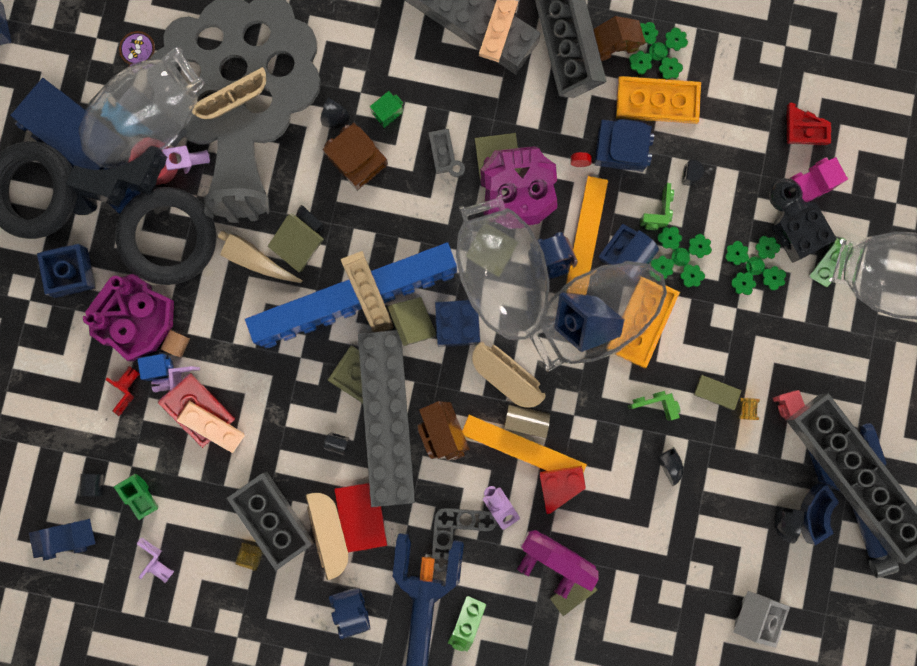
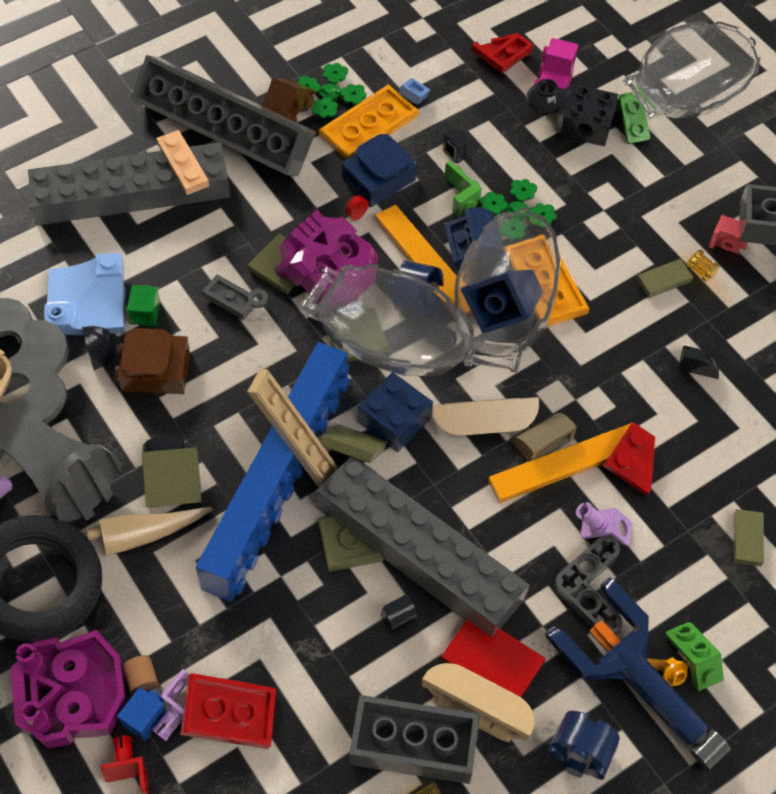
camera: 45 degrees left, 25 degrees down
(210, 426) = (259, 711): light nougat plate -> none
(360, 71) = (88, 295): none -> light blue slope
(442, 432) = (485, 502): reddish brown brick -> none
(442, 622) = (674, 671): none -> light orange plate
(560, 559) = (707, 504): magenta brick -> none
(670, 406) = (637, 316): bright green bracket -> none
(711, 104) = (414, 91): none -> medium blue plate
(755, 265) = (581, 169): green plant -> none

